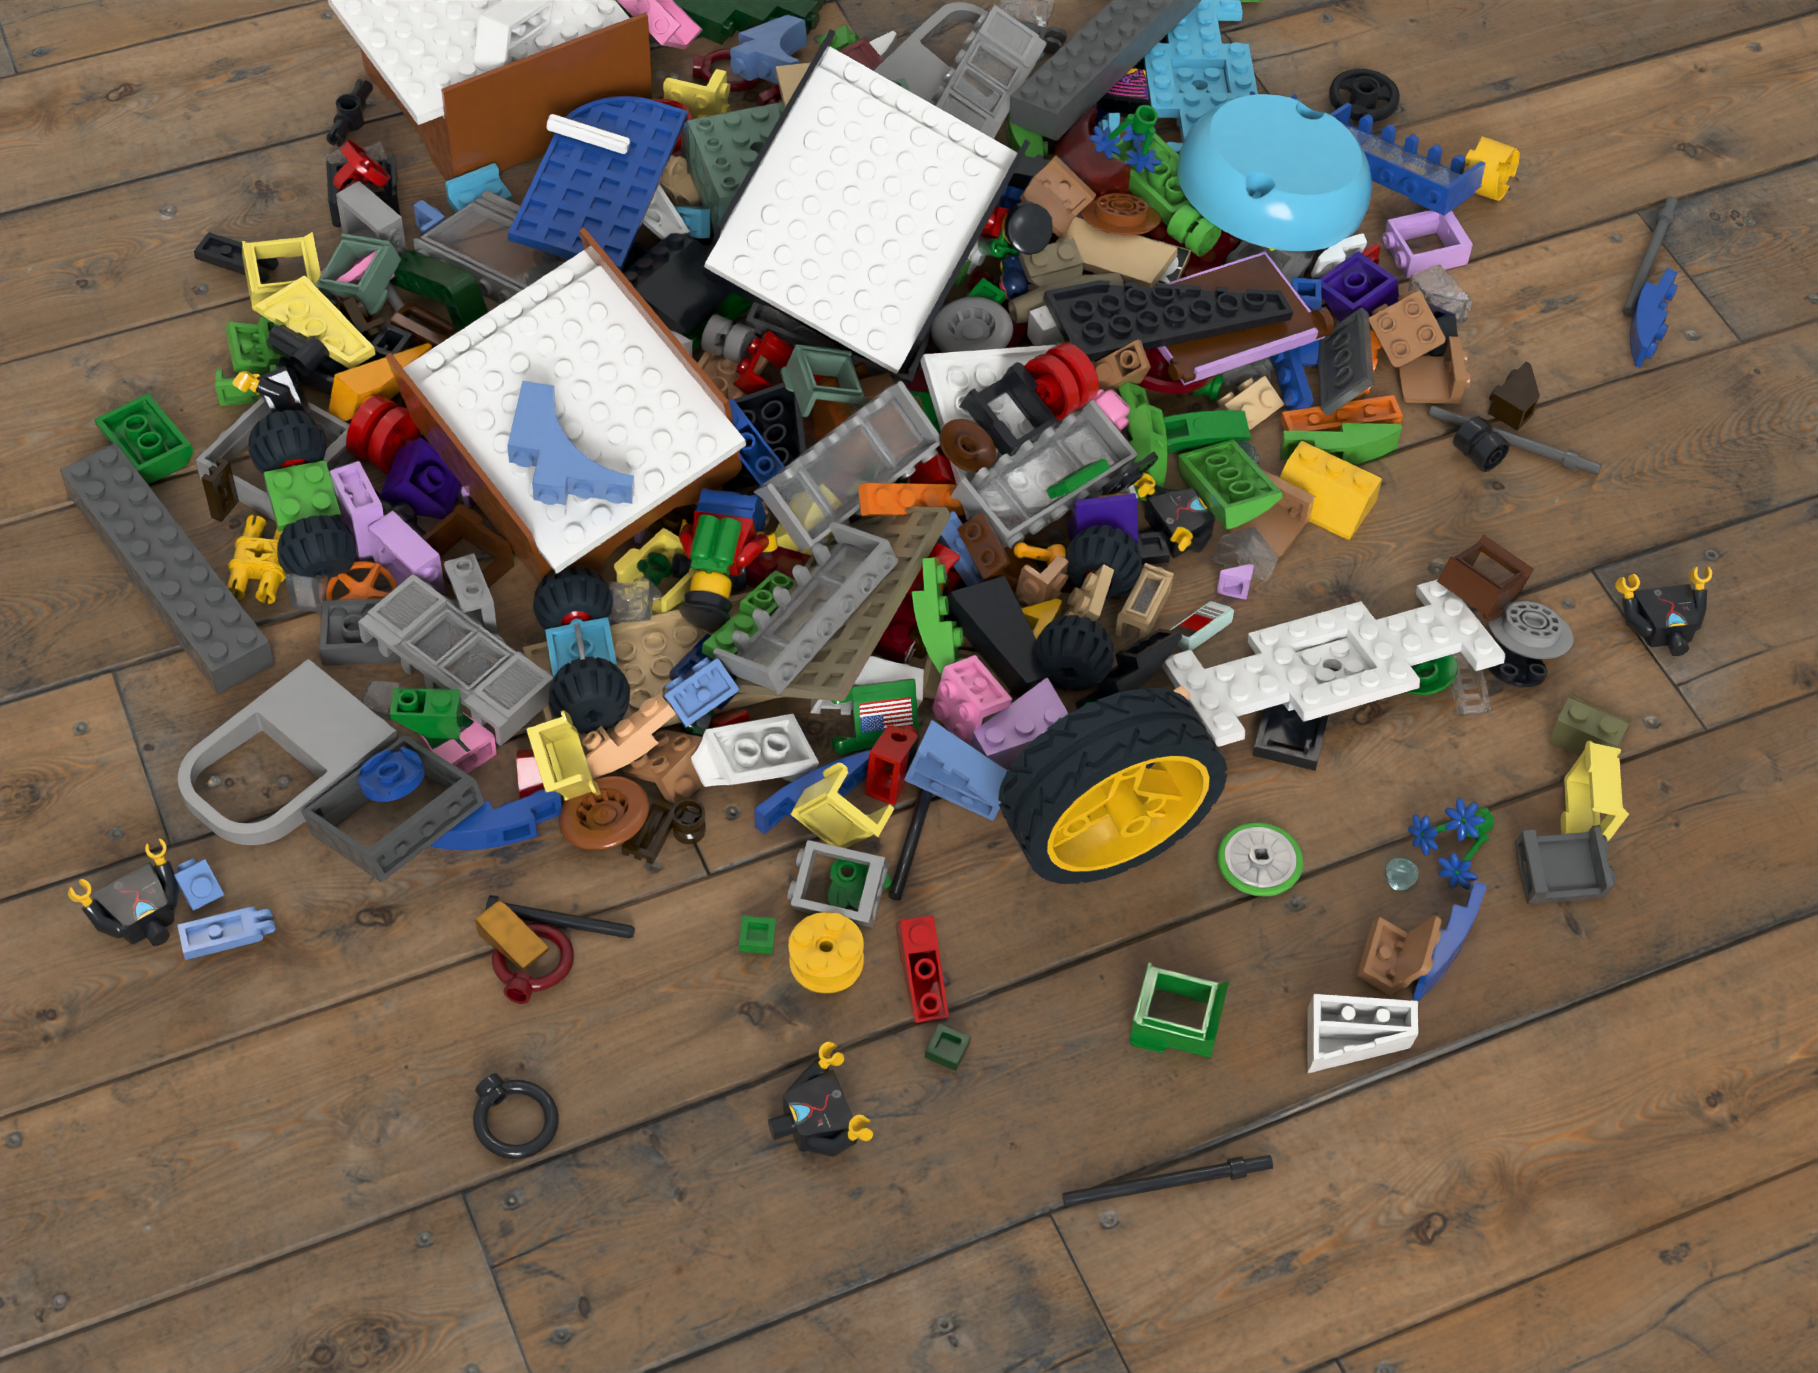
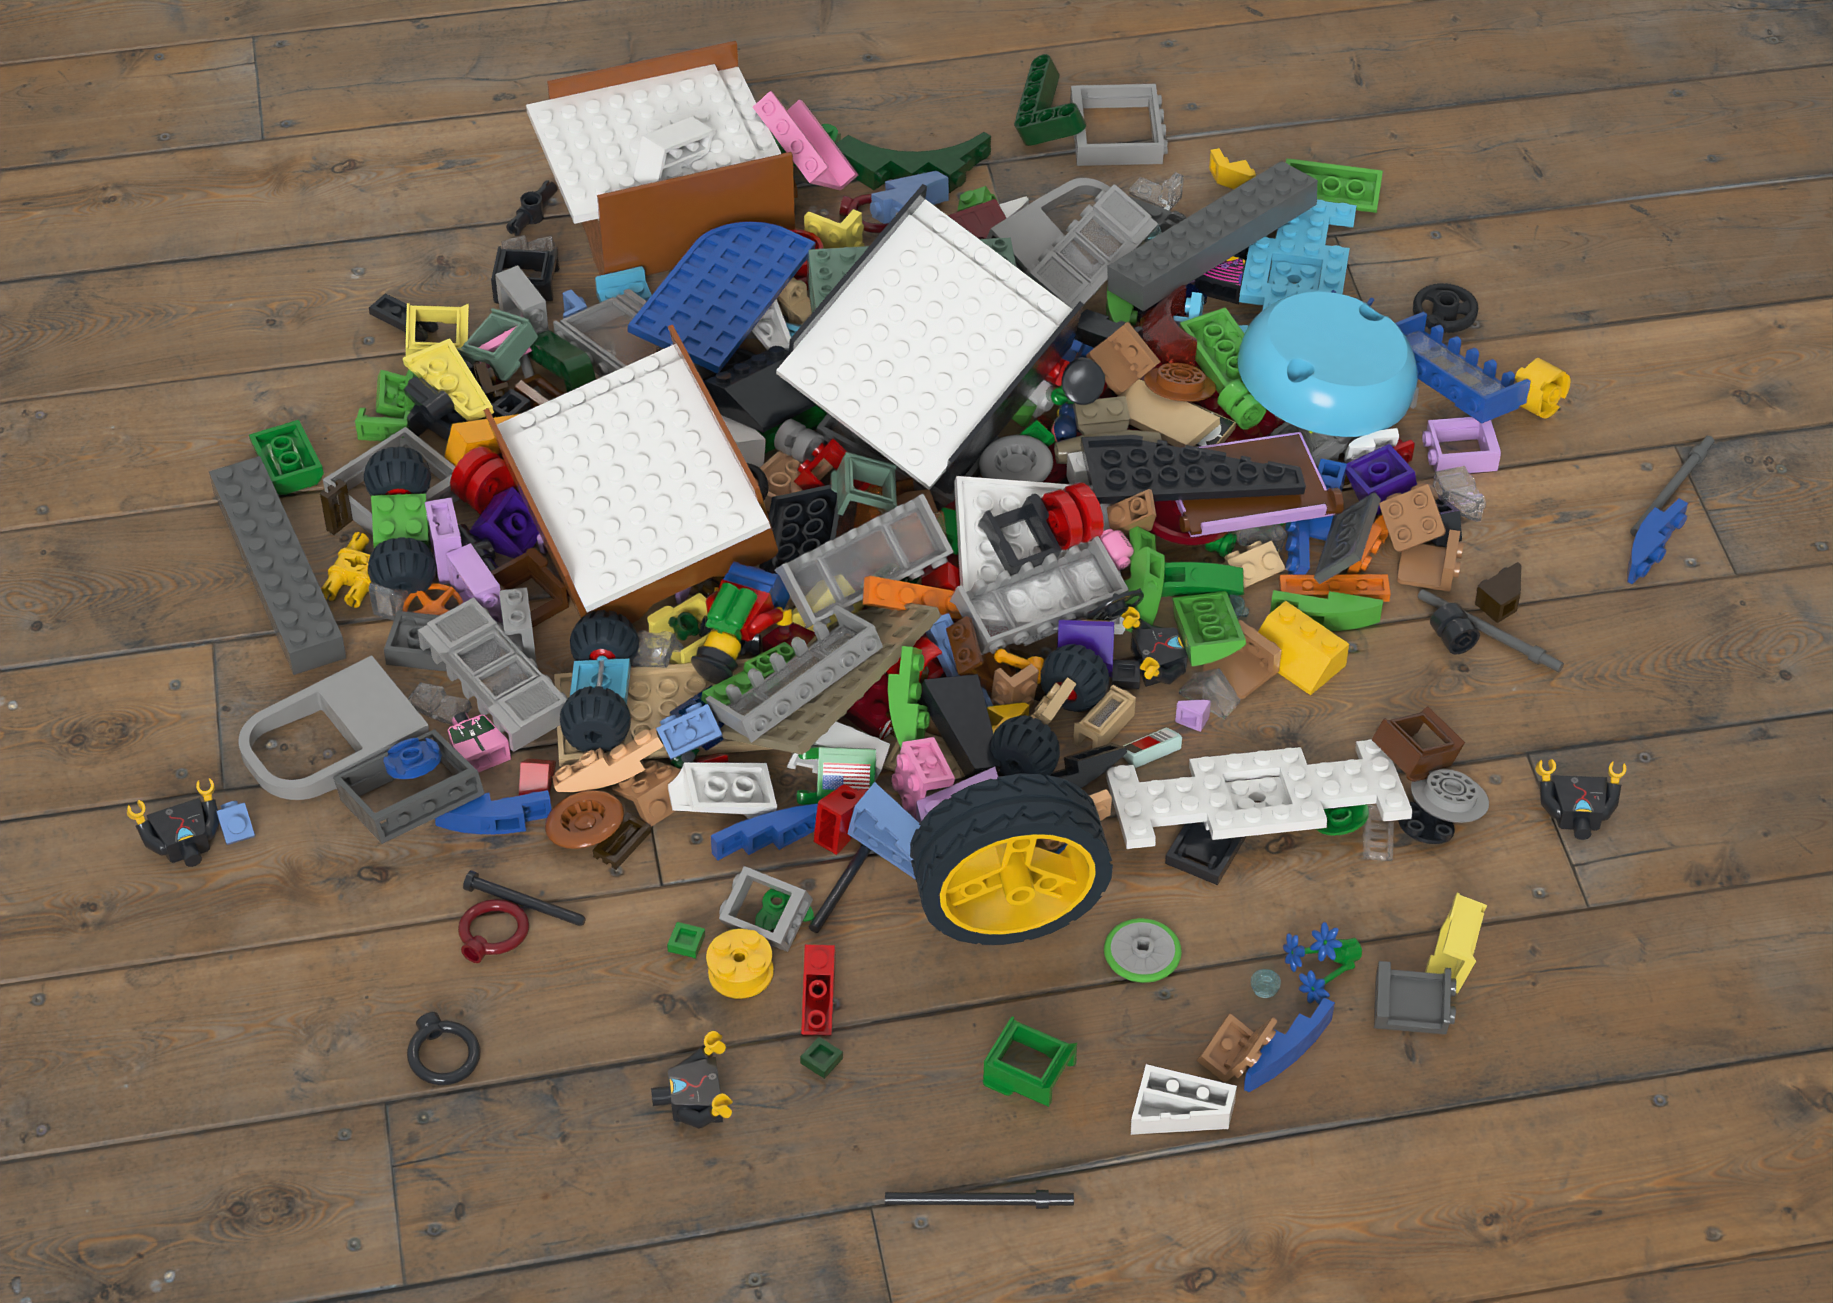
camera: 15 degrees right, 5 degrees down
(225, 931) = (247, 864): medium blue hinge -> none
(279, 388) = (403, 428): black torso -> none
(359, 167) = (522, 254): red tile -> none
(428, 711) = (456, 712): green slope -> none
(510, 935) = (477, 904): pearl gold slope -> none
(560, 467) = (603, 520): medium blue arch -> none
(565, 755) = (562, 764): light yellow piece -> none
(588, 134) = (720, 250): white axle -> none
(688, 821) = (654, 838): dark brown wheel -> none
(757, 454) = (785, 527): blue slope -> none
(829, 824) = (773, 852): light yellow piece -> none
(967, 445) = (974, 558): reddish brown dish -> none
(1077, 478) = (1065, 601): green tile -> none
(1139, 129) = (1211, 303): plant -> none
(1585, 722) = (1478, 883): olive slope -> none

